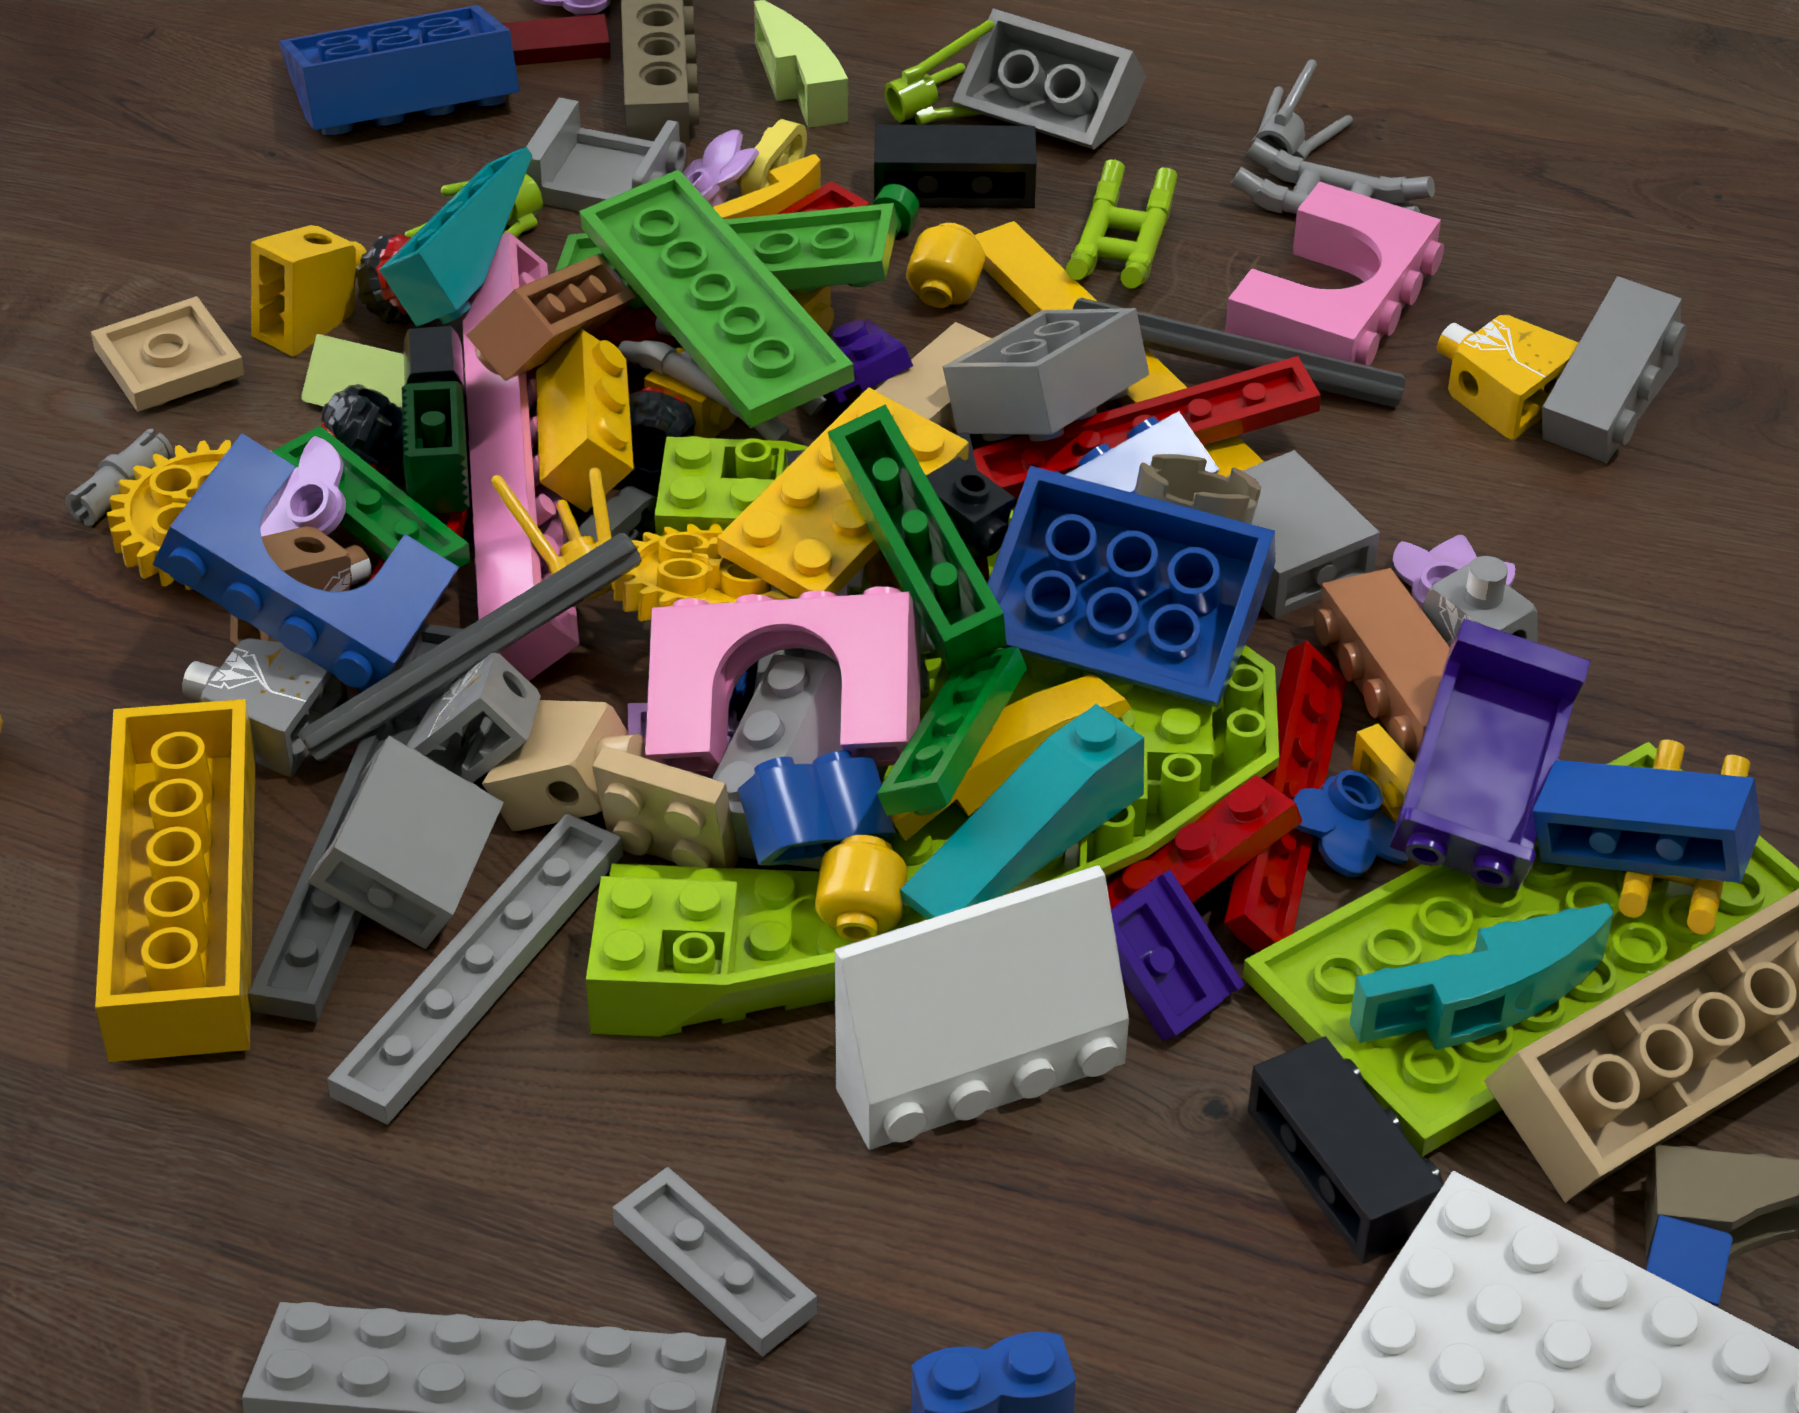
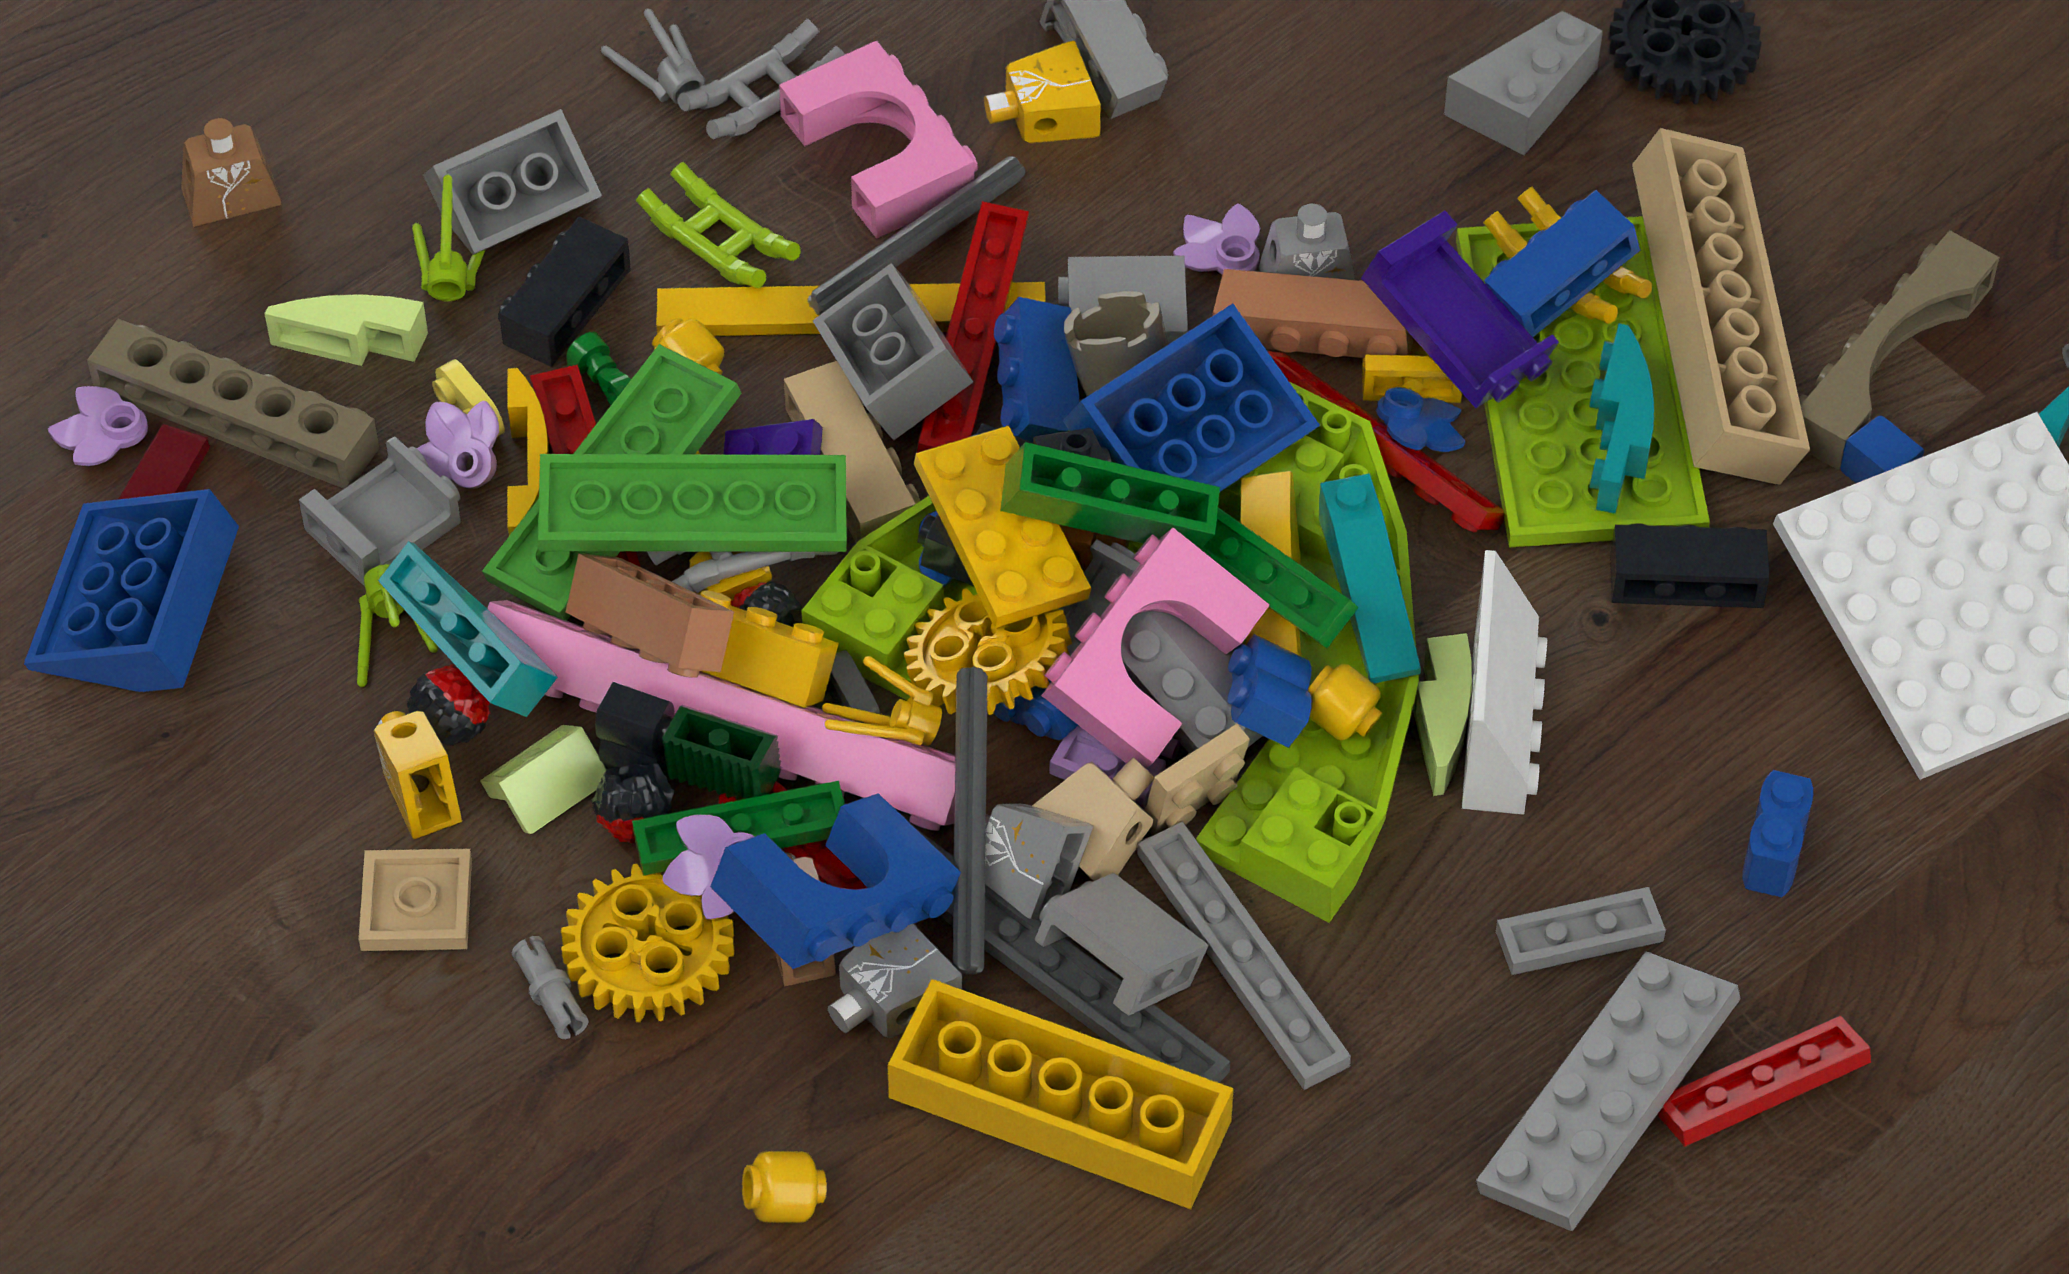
camera: 60 degrees left, 10 degrees up
(1170, 956) = (1465, 564): dark purple plate -> none
(1215, 843) = (1419, 494): red plate -> none

